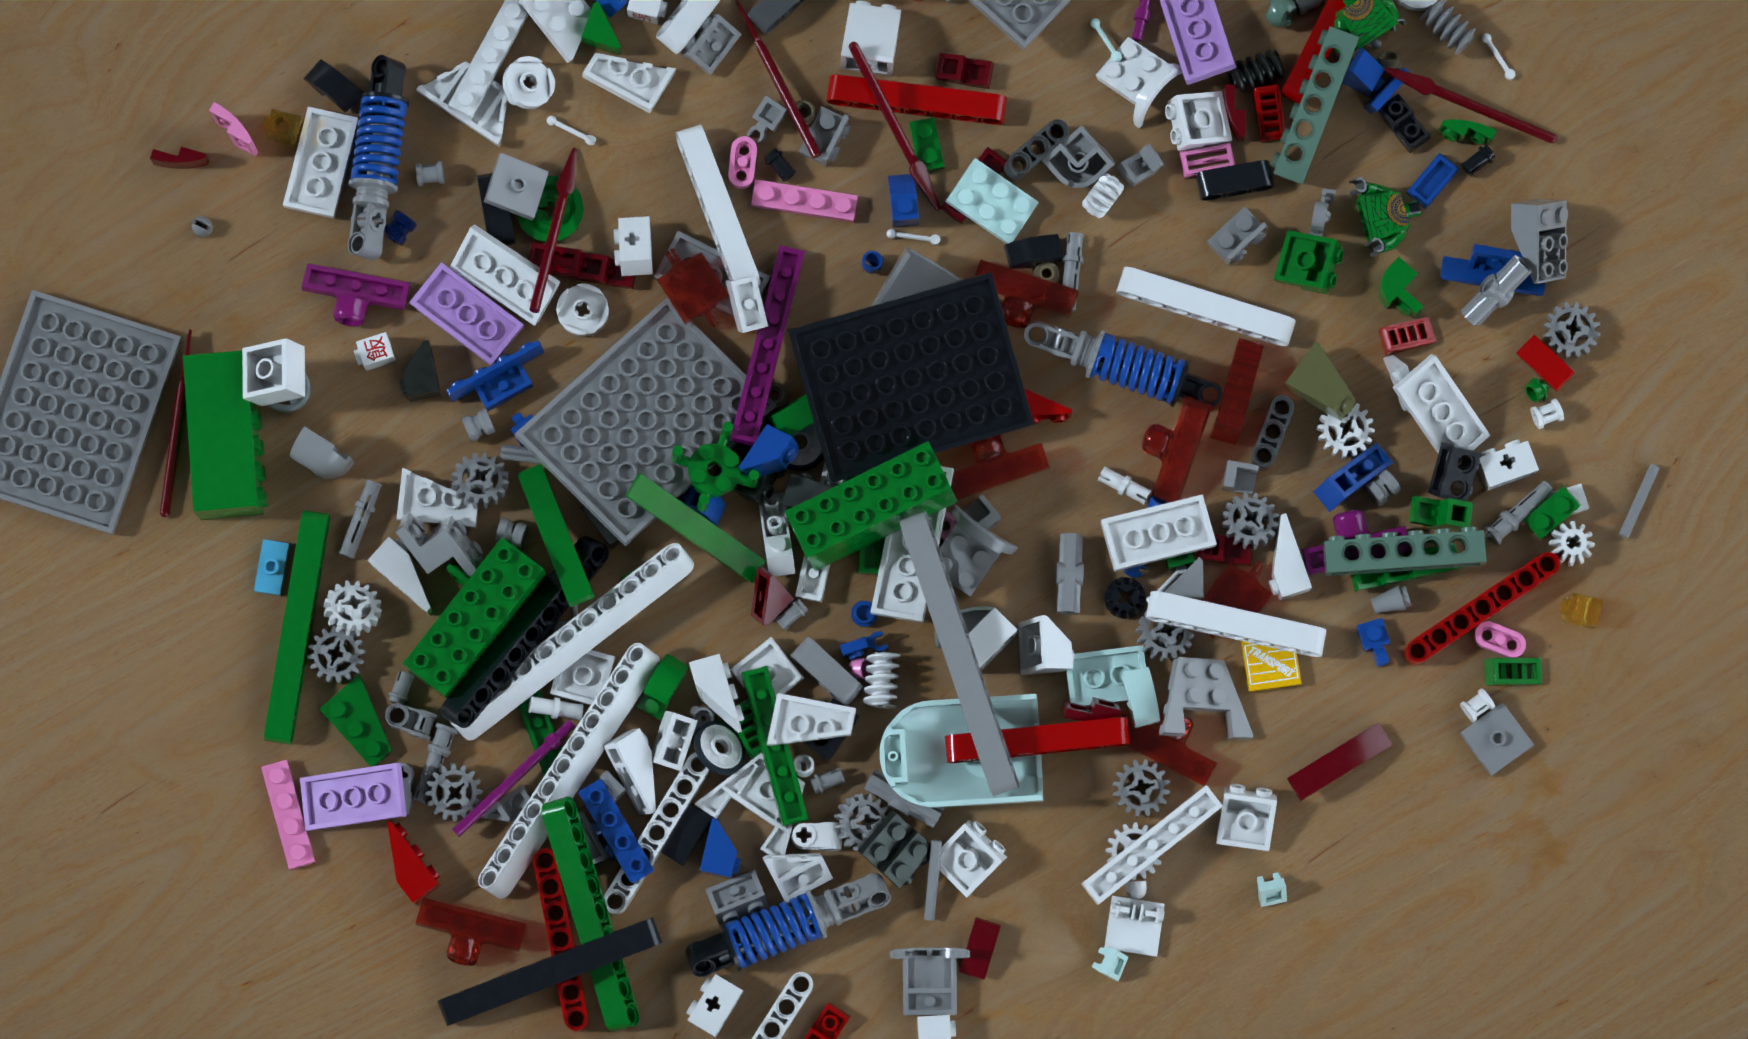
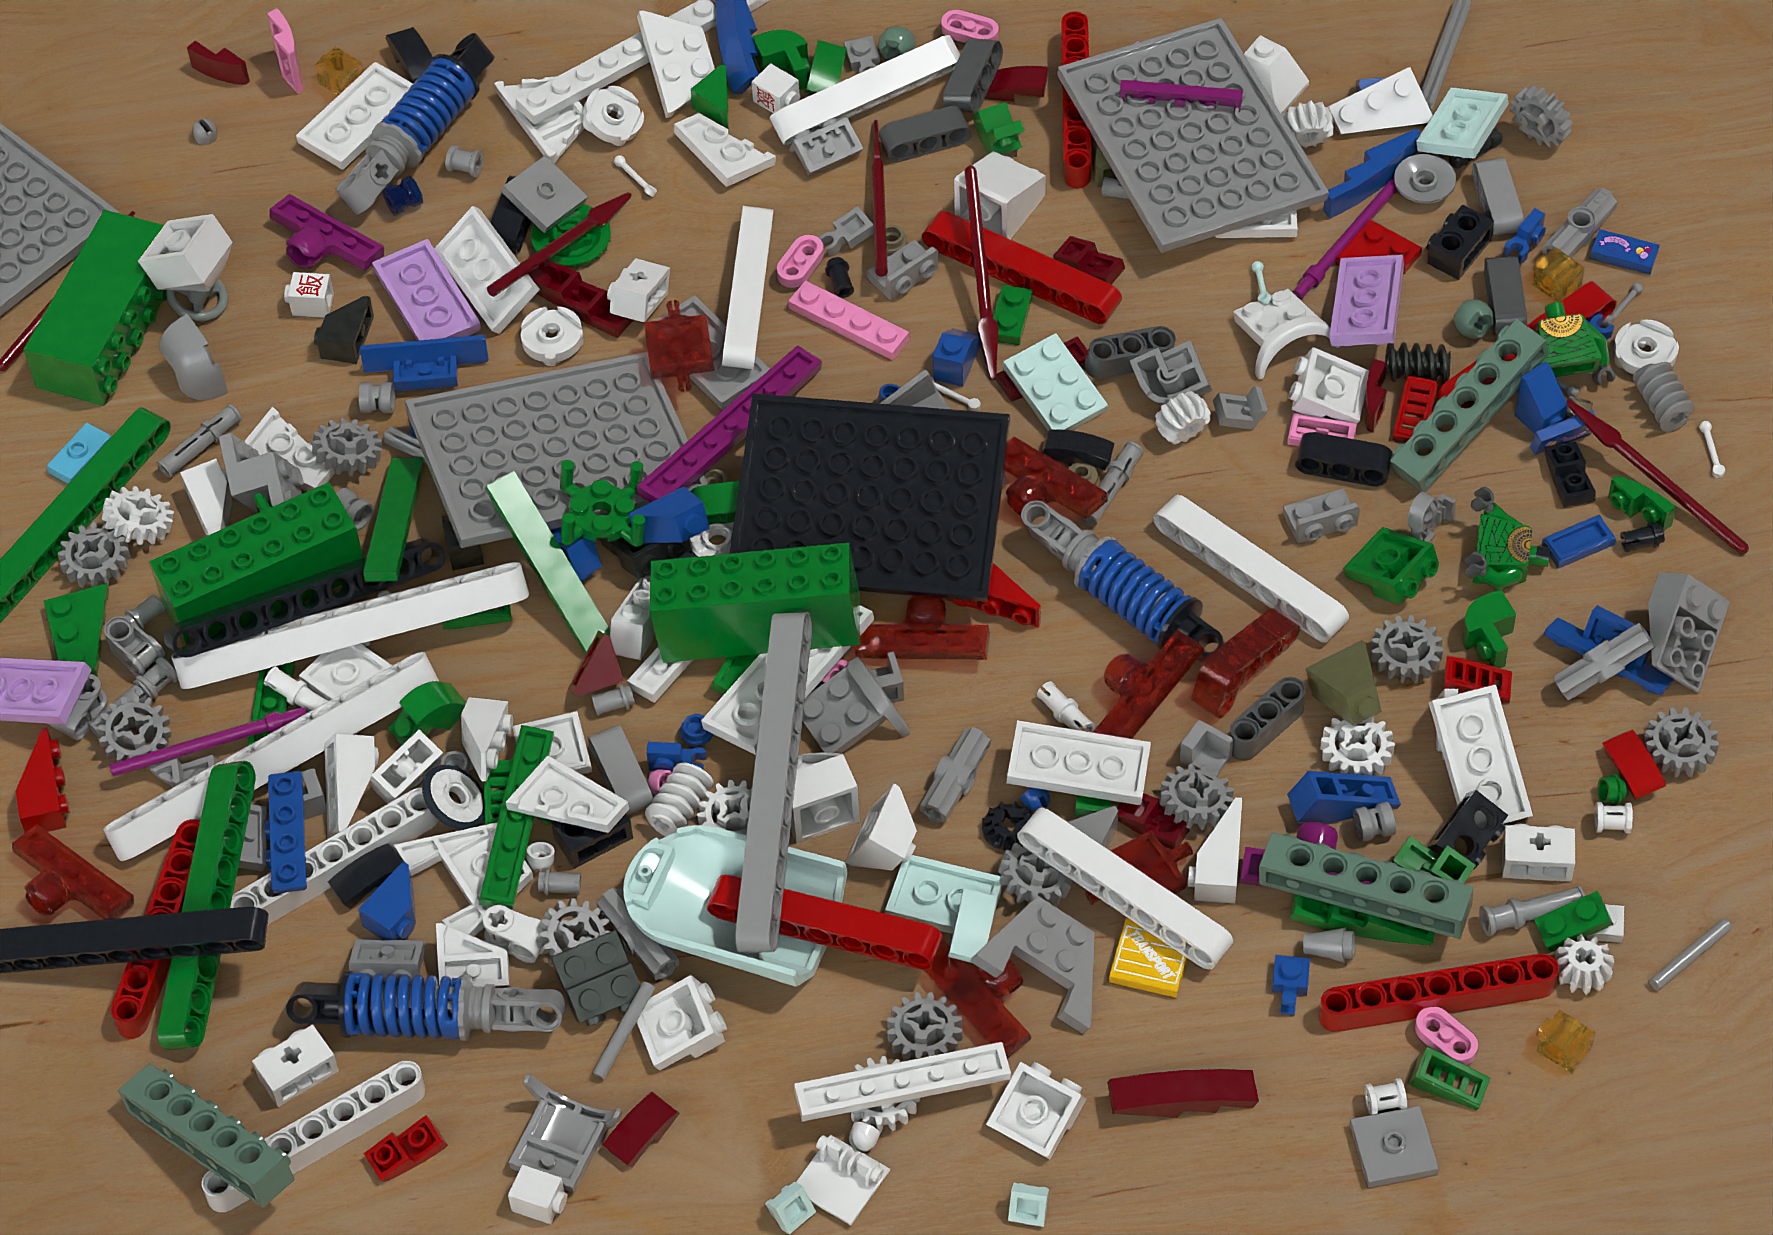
camera: 30 degrees right, 25 degrees down
(746, 304) = (727, 372): white panel -> none
(914, 671) = (731, 806): none -> white gear
(1098, 710) = (912, 912): dark red slope -> none
(1341, 323) = (1404, 651): none -> light grey gear

